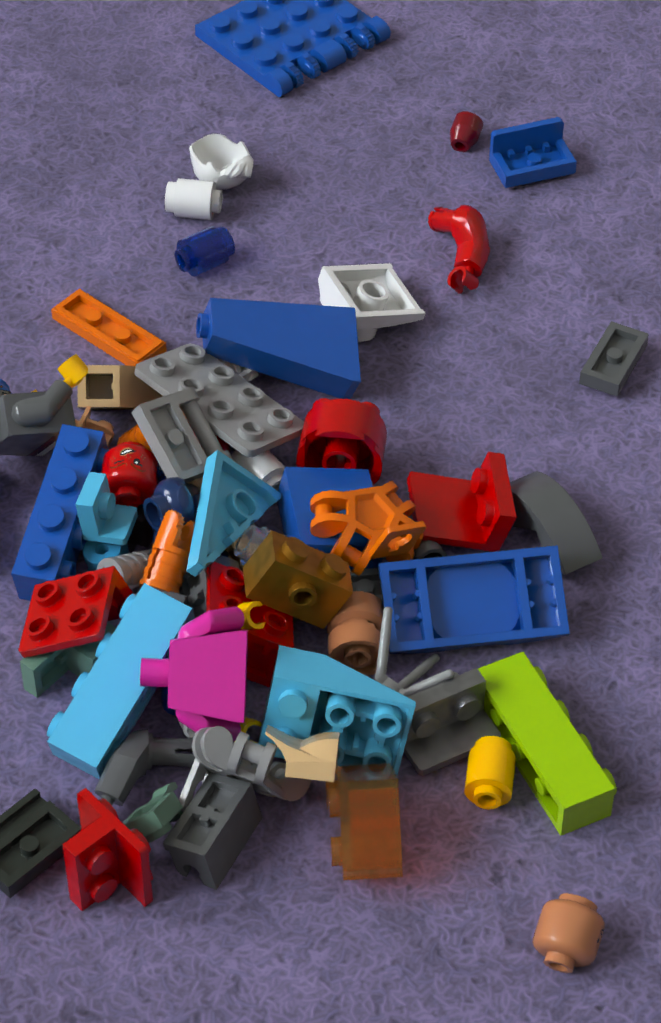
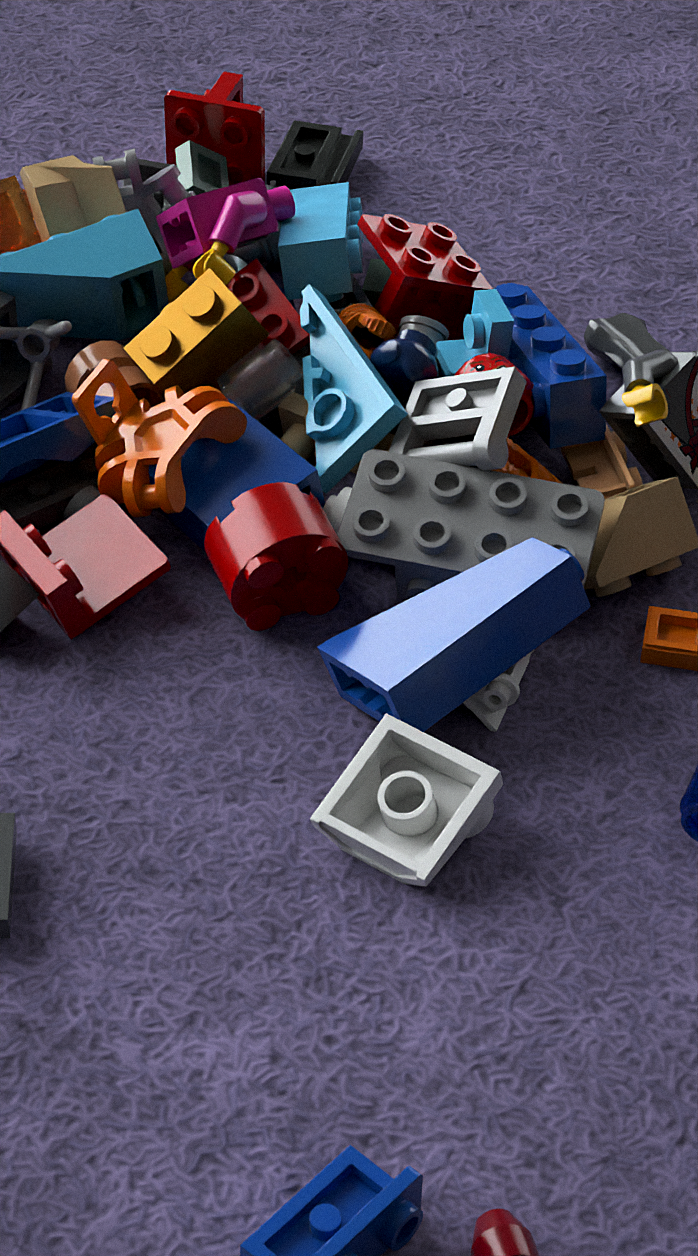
camera: 150 degrees right, 5 degrees down
(472, 243) = (336, 984): red arm -> none

